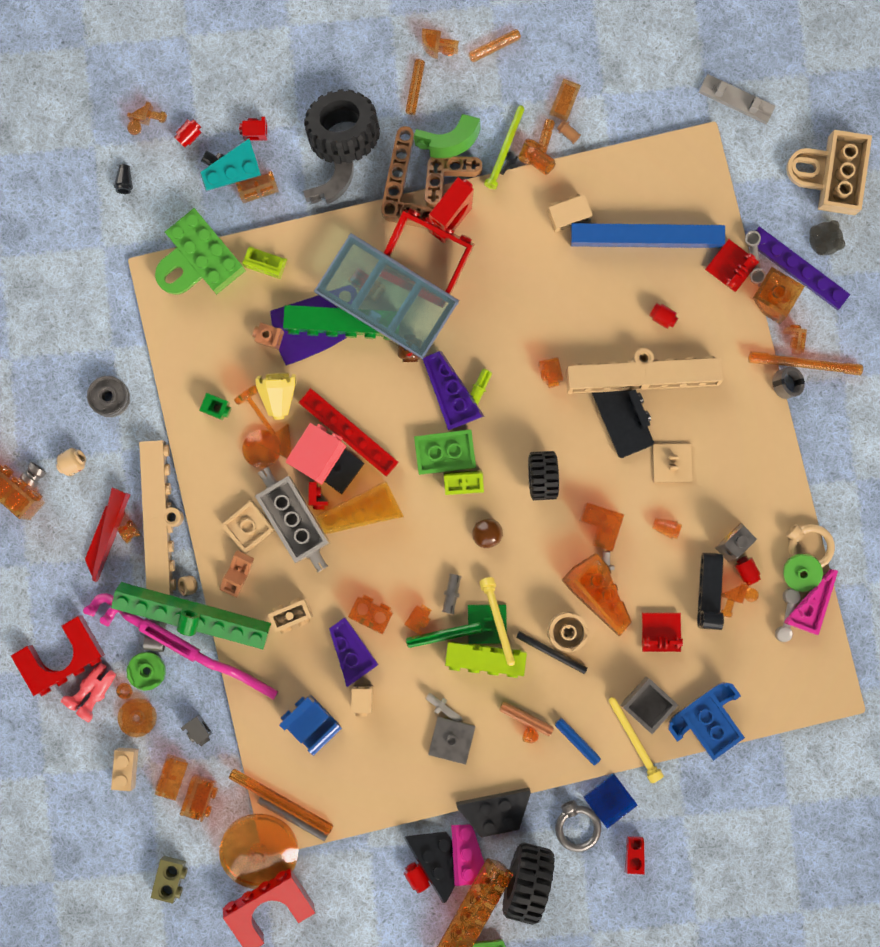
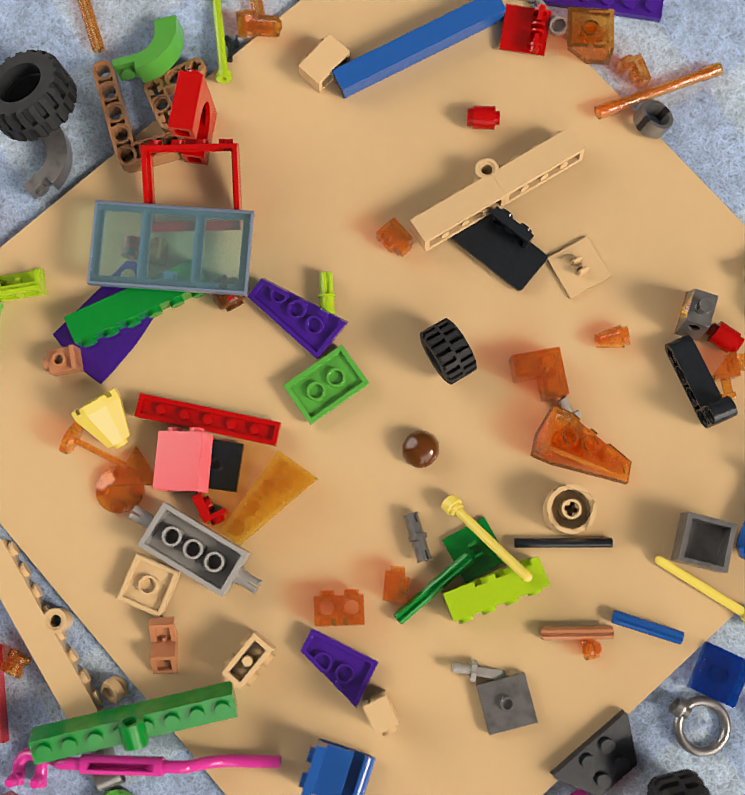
camera: 25 degrees left, 5 degrees down
(209, 404) = (35, 468): green brick -> none
(463, 482) = (364, 406): lime hinge -> none
(661, 632) = (670, 455): red hinge -> none

